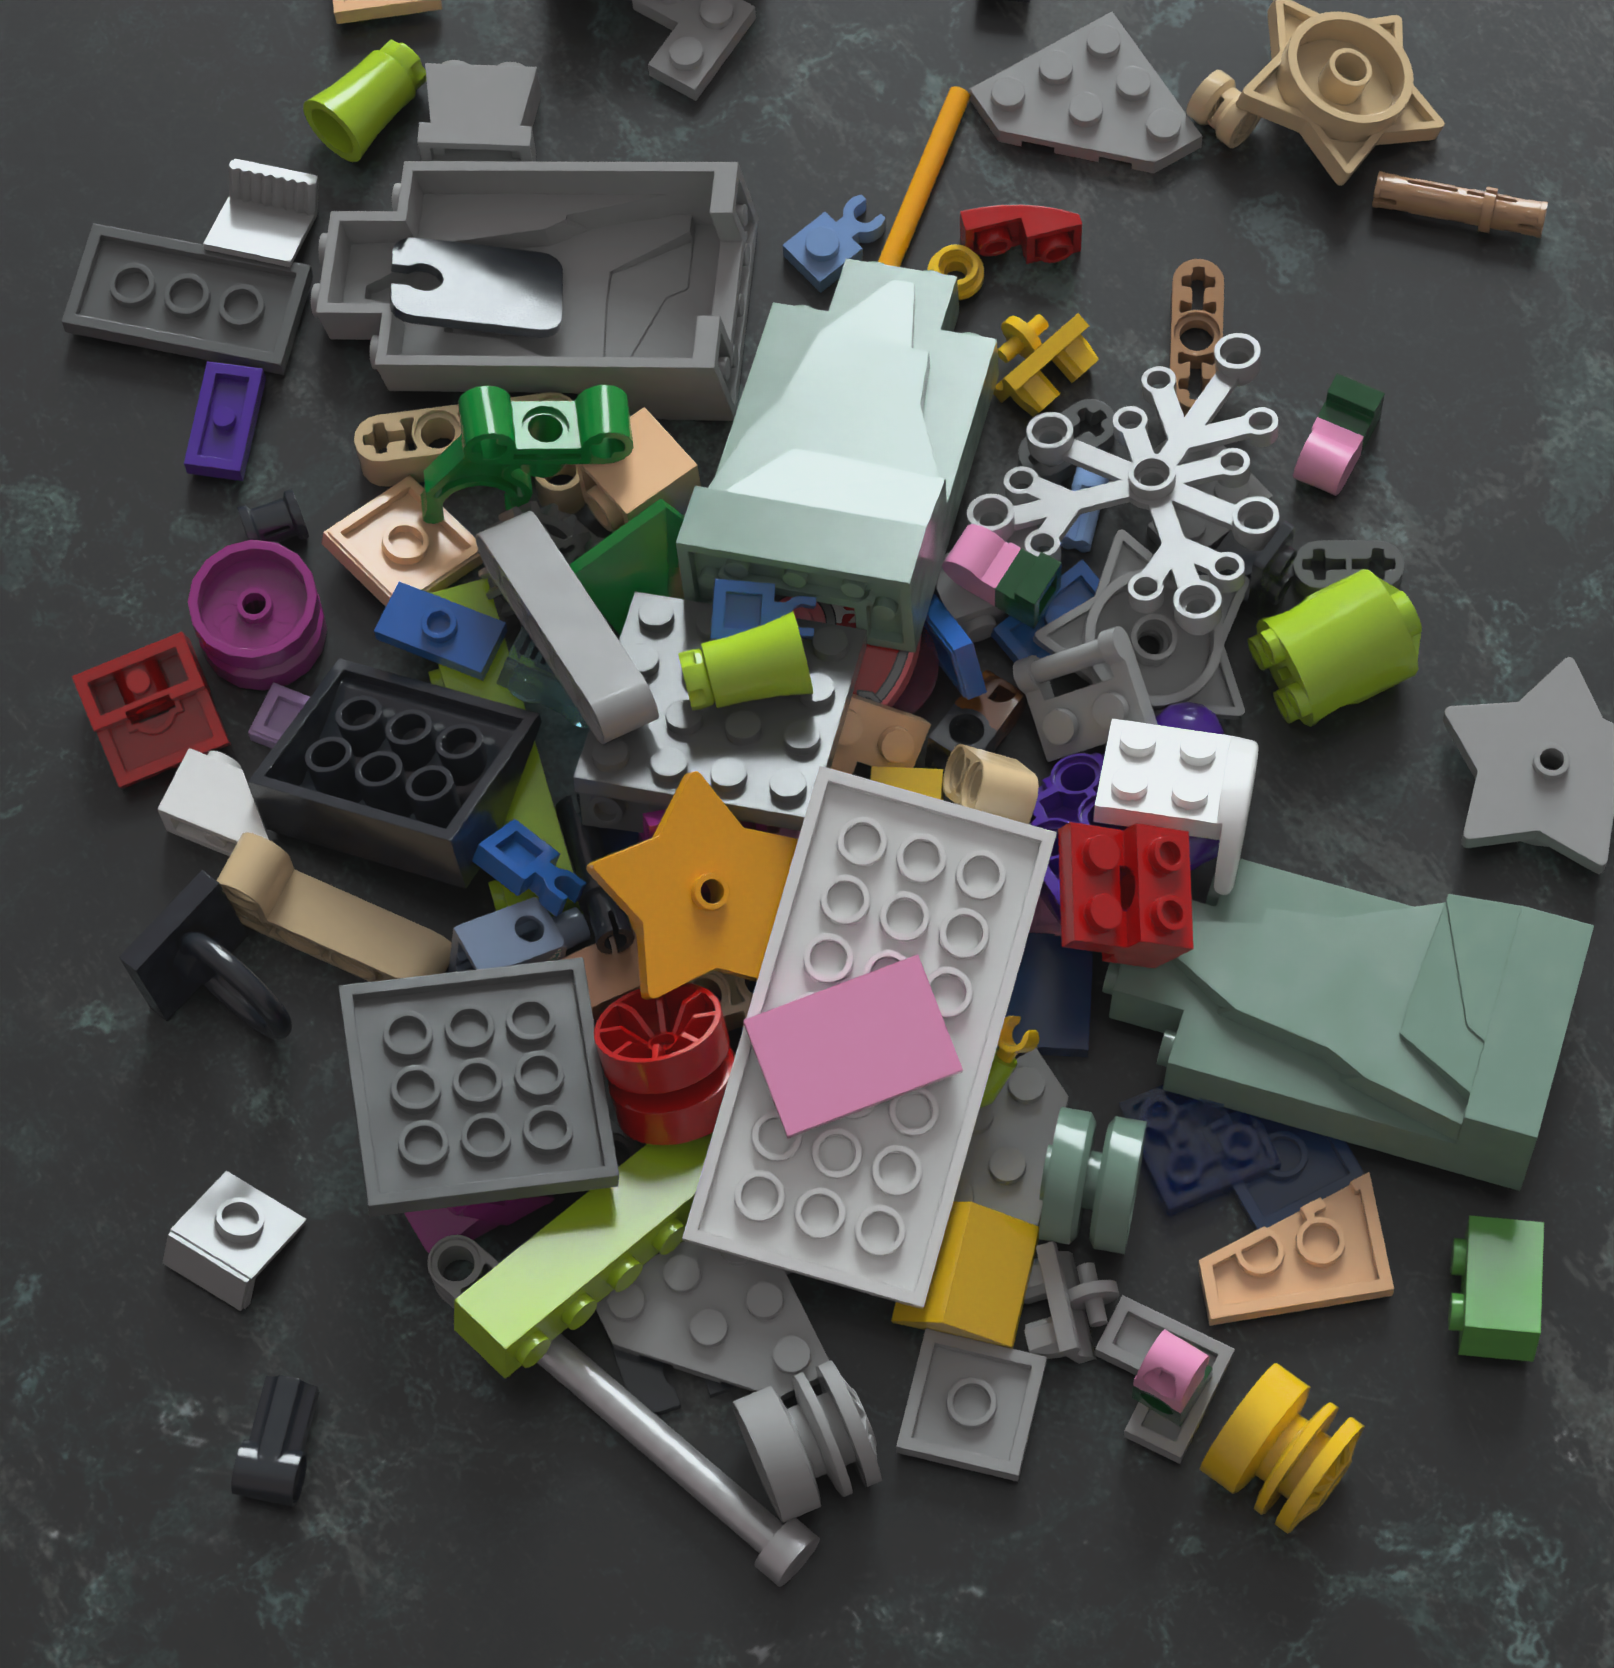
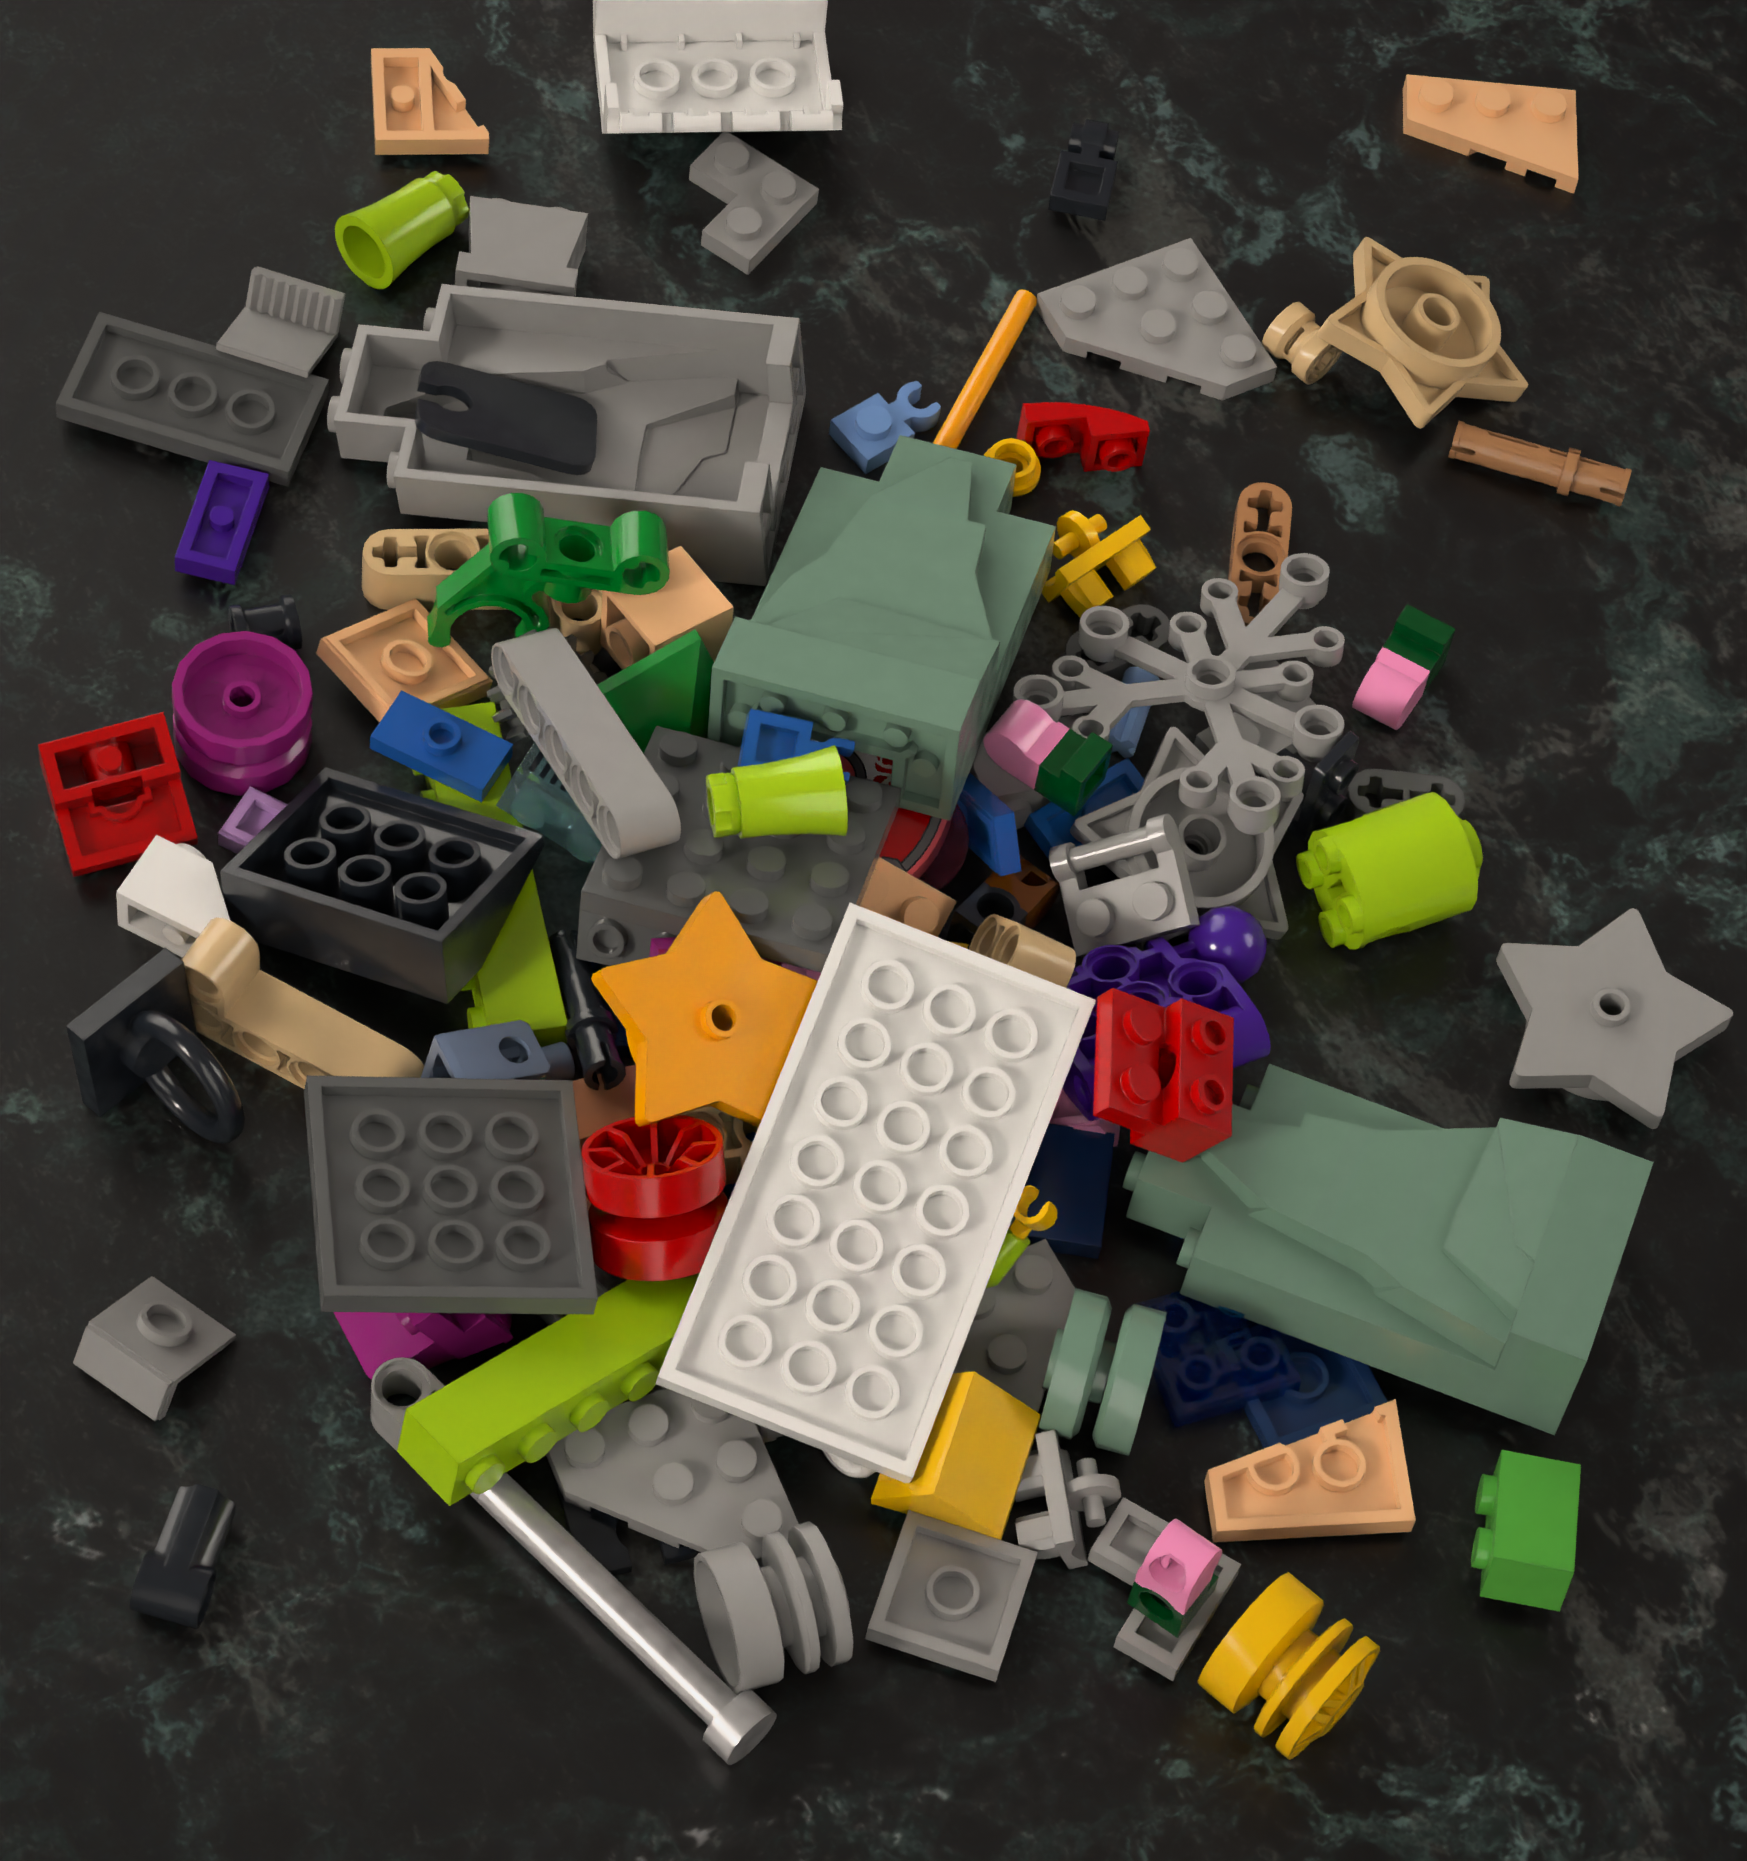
camera: 10 degrees left, 10 degrees down
(527, 862) = (515, 983): blue plate -> none
(852, 1046) = (860, 1193): bright pink tile -> none
(1182, 784) = (1230, 972): white piece -> none

